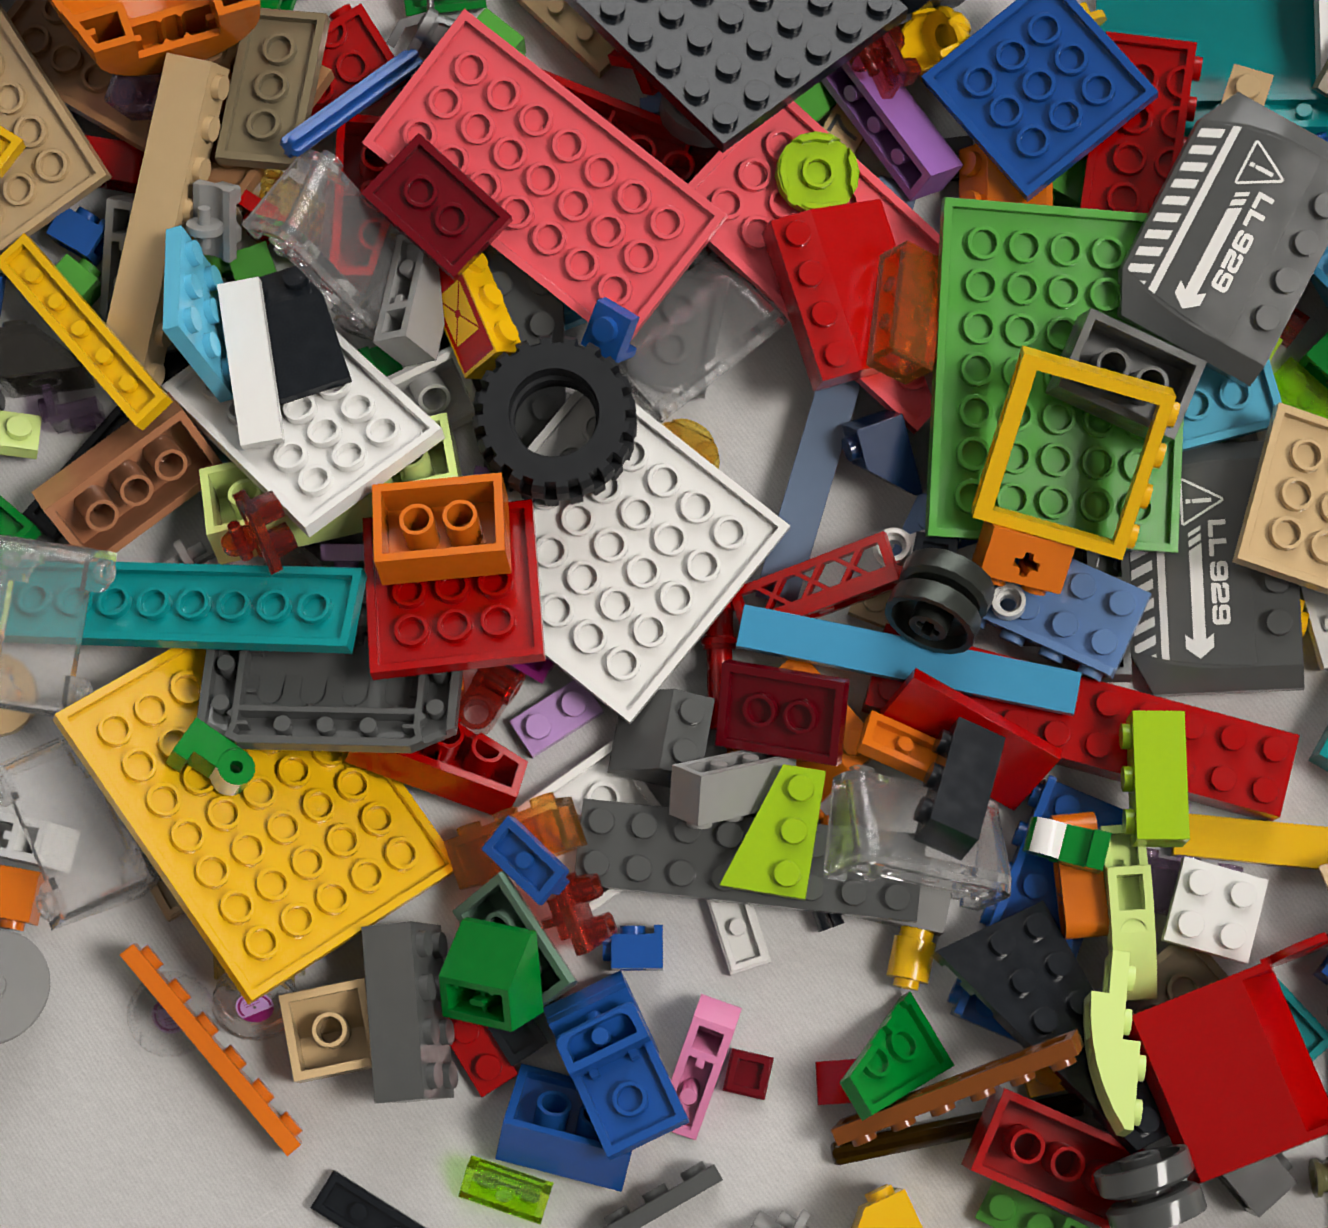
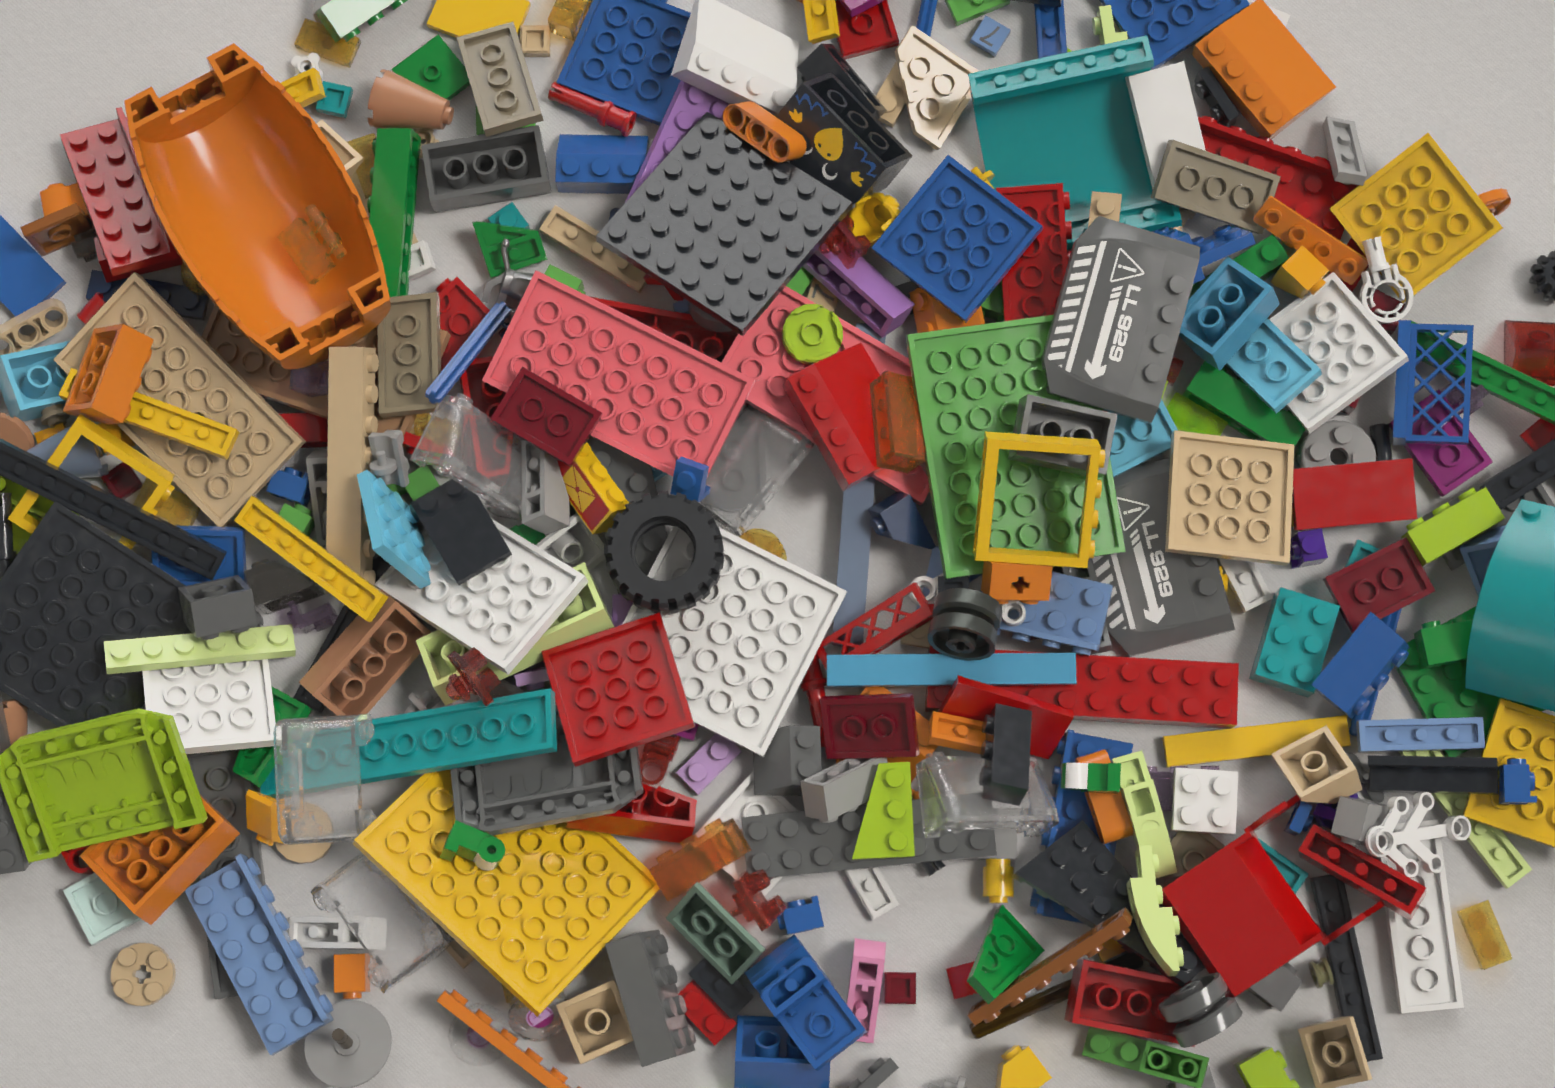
camera: 10 degrees left, 0 degrees up
(250, 363) = (437, 557): white tile -> none
(441, 529) = (601, 648): orange brick -> none
(492, 975) = (705, 958): green slope -> none
(526, 860) = (712, 871): blue plate -> none
(1155, 779) = (1143, 717): lime brick -> none

